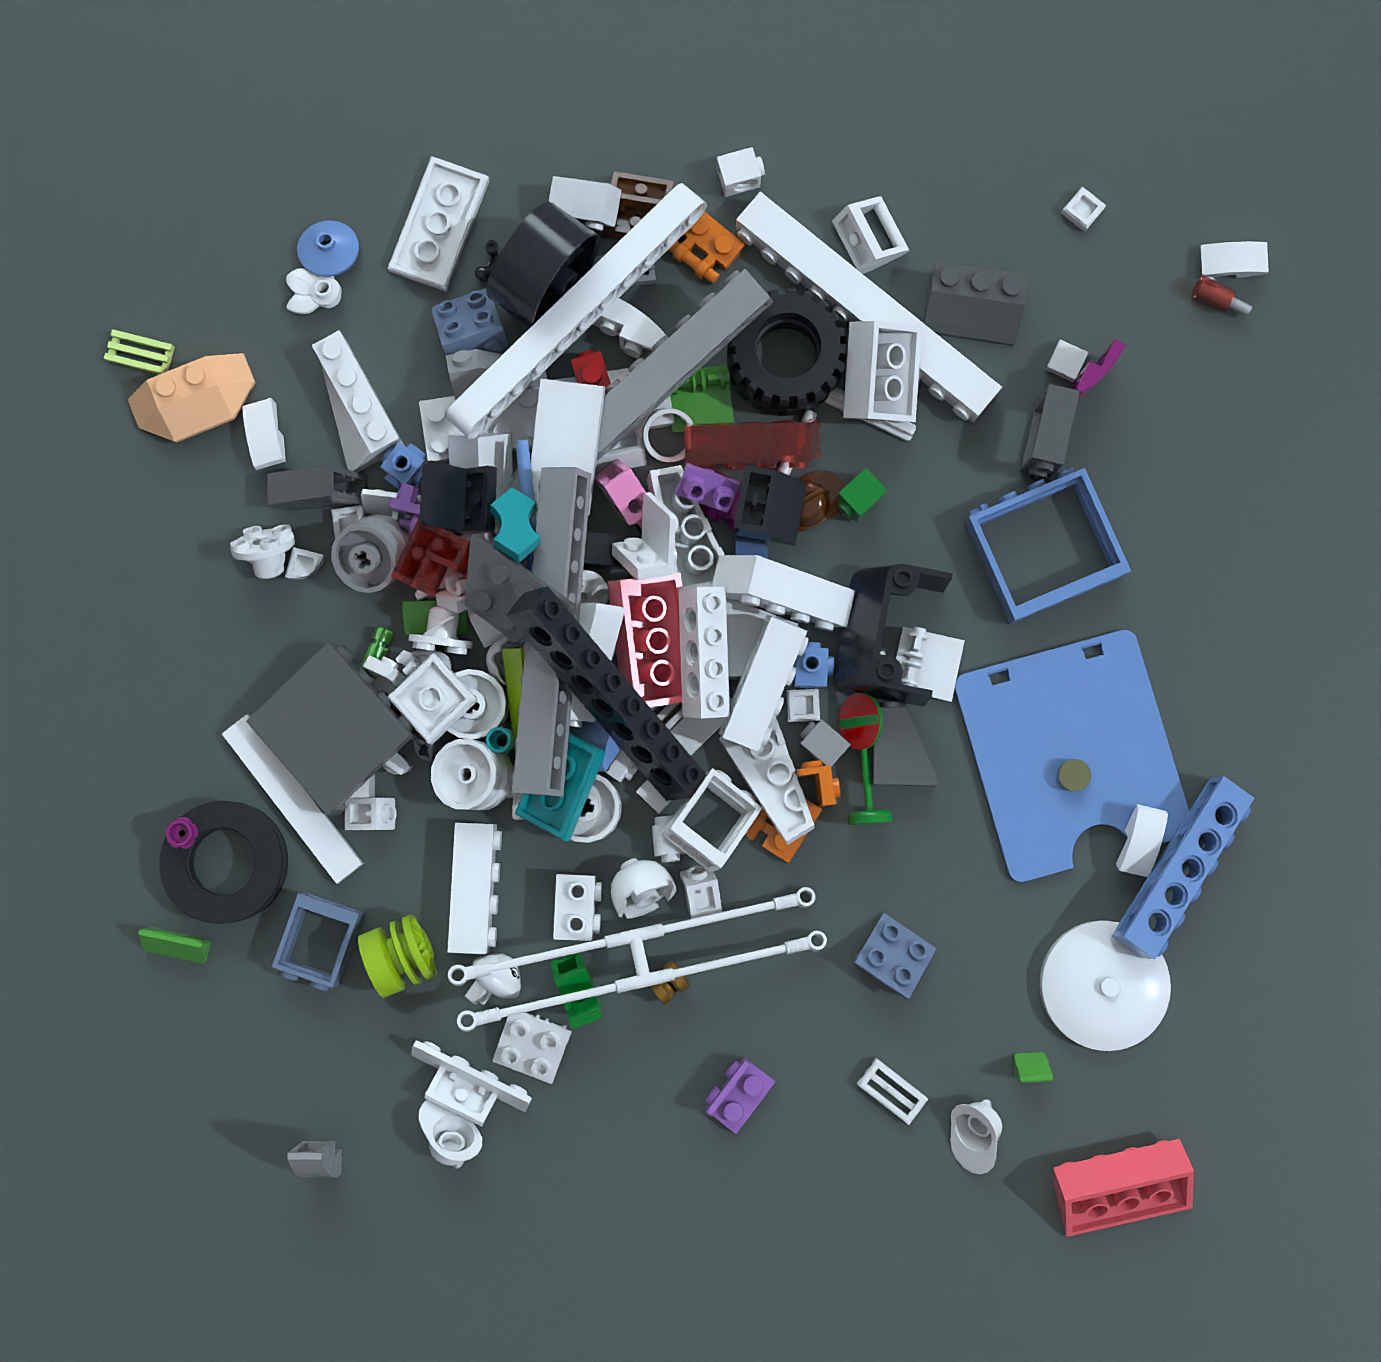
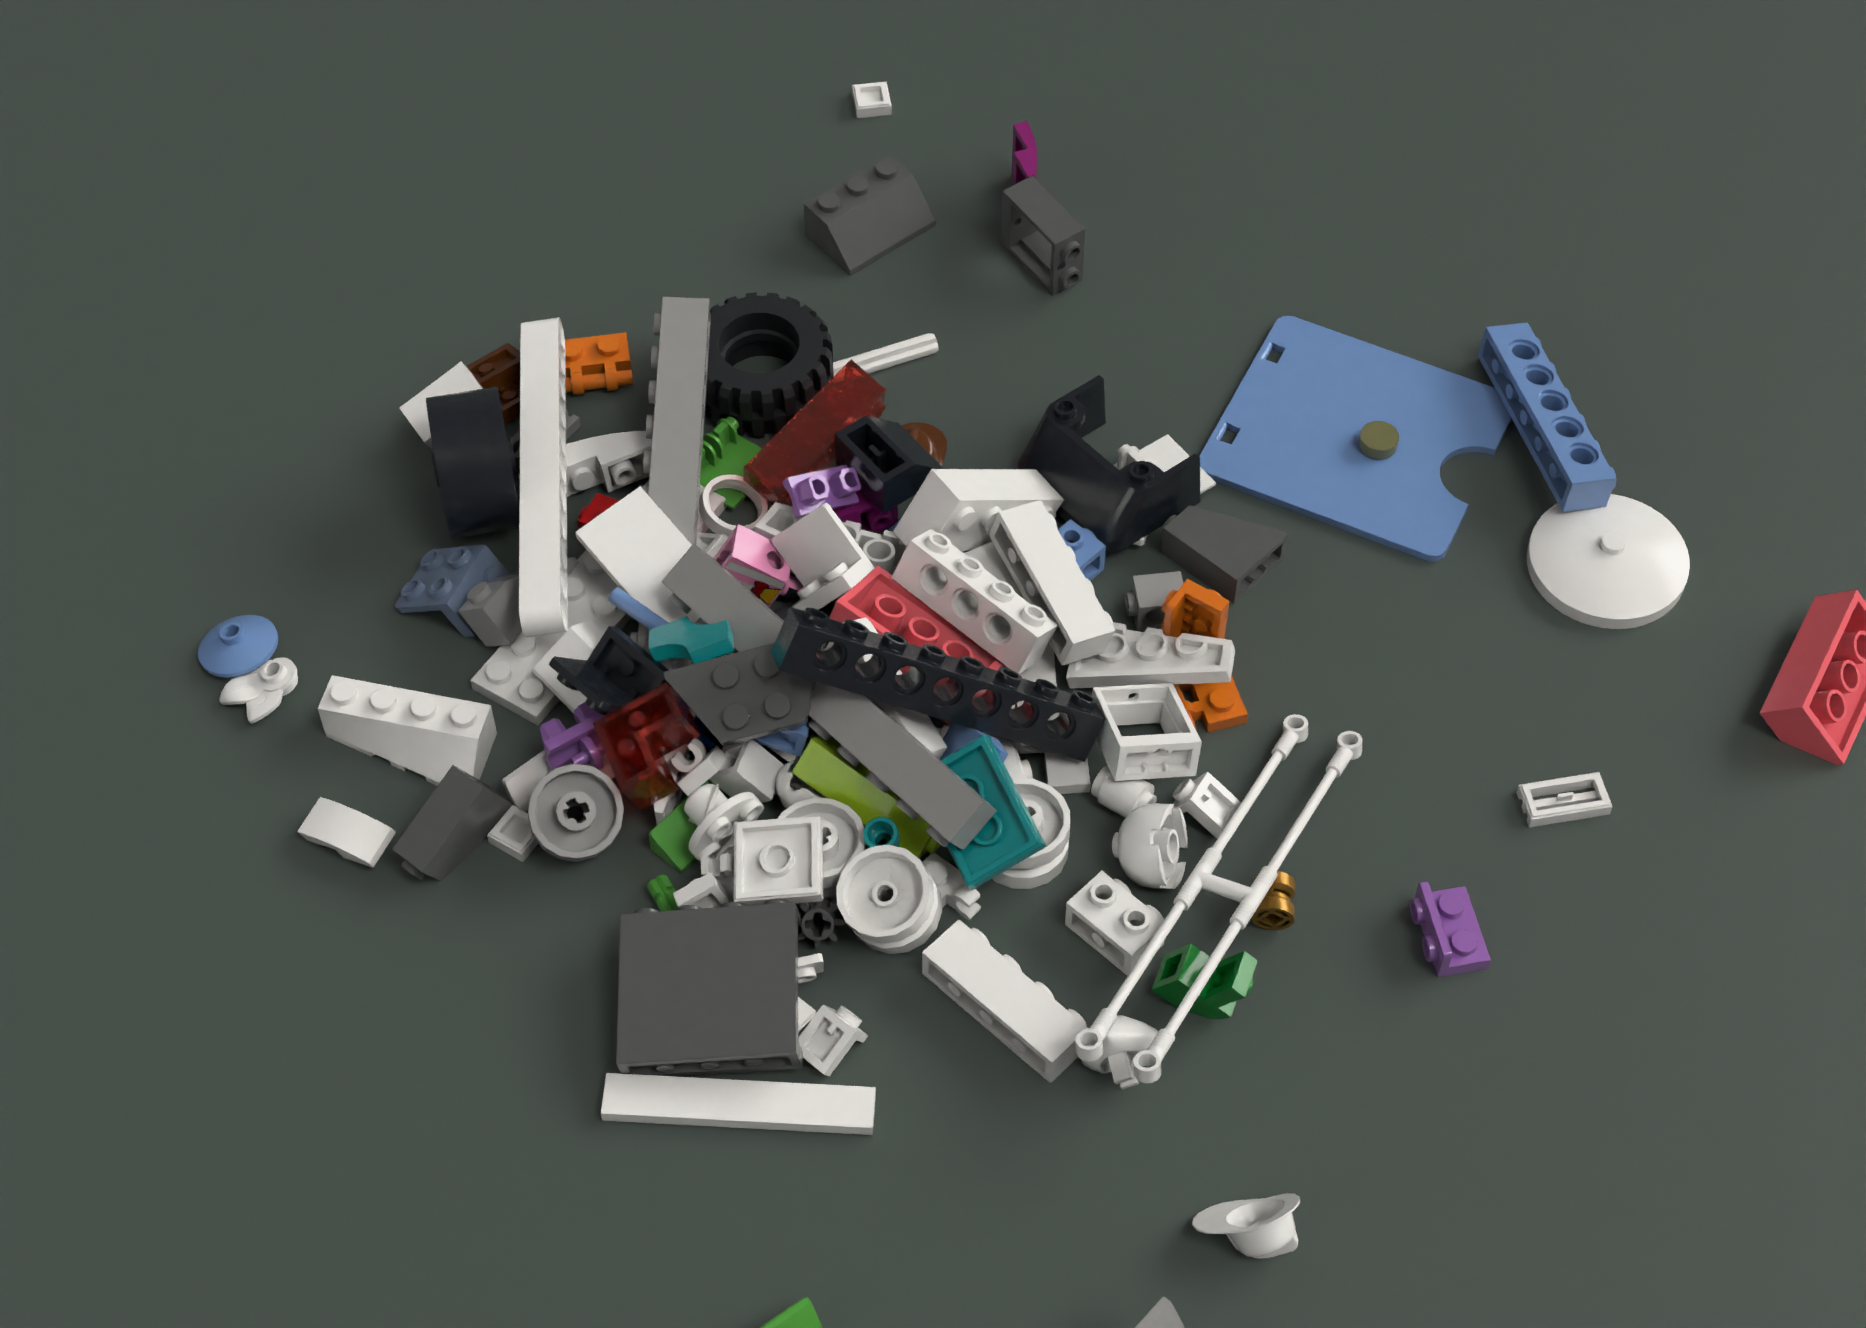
camera: 50 degrees left, 30 degrees down
(114, 346) = (132, 880): yellowish green tile -> none
(173, 836) = (669, 1203): magenta plate -> none
(193, 397) = (233, 871): light nougat wedge -> none
(263, 887) = (749, 1280): black tyre -> none
(264, 549) = (463, 916): white plate -> none
(294, 970) = (898, 1151): sand blue window -> none
(303, 564) = (510, 904): white tile -> none
(392, 957) = (1010, 1111): lime wheel -> none
(395, 457) = (517, 732): medium blue brick -> none
(438, 224) = (326, 545): white tile -> none
(464, 1088) = (1211, 1167): white bracket -> none
(483, 272) = (414, 543): black piece -> none
(532, 1046) = (1225, 1074): white hinge -> none
(739, 171) = (558, 290): white brick -> none
(803, 705) = (1109, 593): white tile -> none
(859, 299) = (821, 282): white brick -> none
(860, 495) = (951, 405): green brick -> none
(861, 241) = (722, 246): white tile -> none
(861, 726) = (1171, 547): piece -> none
(882, 371) = (857, 304): white slope -> none
(895, 956) = (1427, 697): sand blue hinge -> none
(975, 1136) = (1673, 755): white piece -> none
(1032, 1067) = (1642, 668): bright green slope -> none
(1037, 491) = (1154, 266): medium blue window -> none
(1066, 360) = (987, 195): white tile -> none
(1144, 840) = (1498, 435): white slope -> none
(1218, 295) = (1047, 65): clear red piece -> none
(1235, 258) = (1026, 35): white slope -> none

